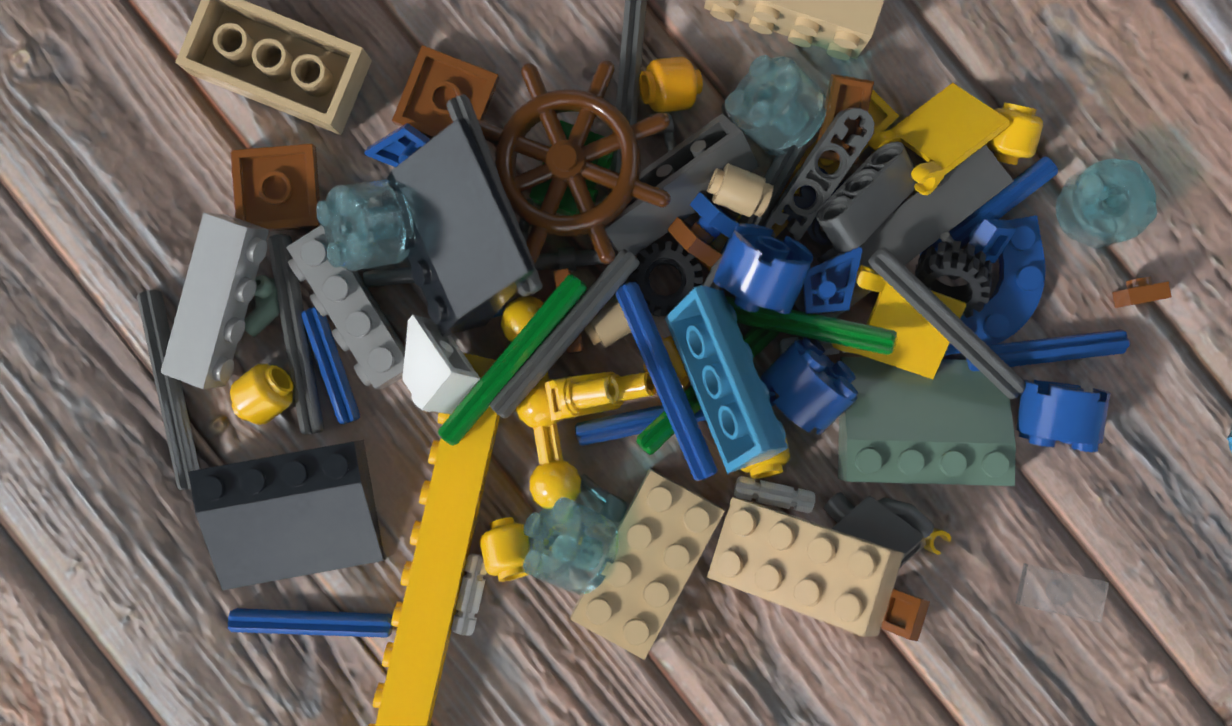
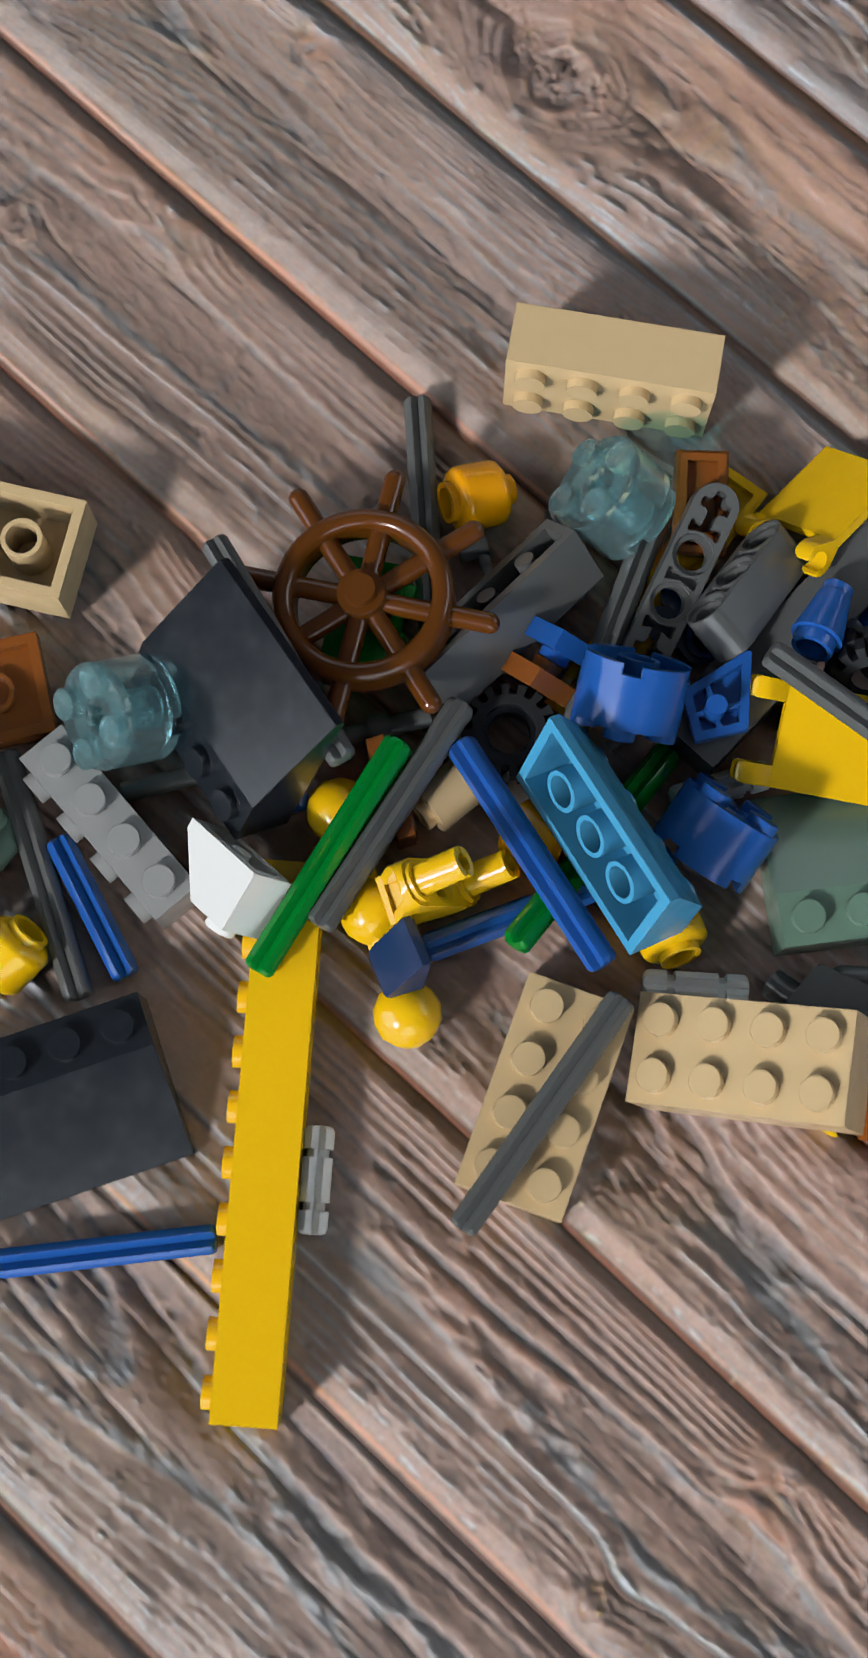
camera: 10 degrees left, 10 degrees down
(397, 145) = (141, 618): blue piece -> none
(436, 81) = (174, 544): dark orange plate -> none
(504, 549) = (358, 1110): yellow head -> none
(554, 448) = (401, 959): none -> dark blue slope
(570, 546) = (439, 1086): clear light blue brick -> none
(614, 506) = (488, 1033): dark grey hand -> none
(642, 581) = (541, 1113): none -> dark grey axle
(740, 190) = (585, 603): tan brick -> none
(820, 328) = (711, 756): green axle -> none
(922, 233) = (823, 621): none -> blue cone

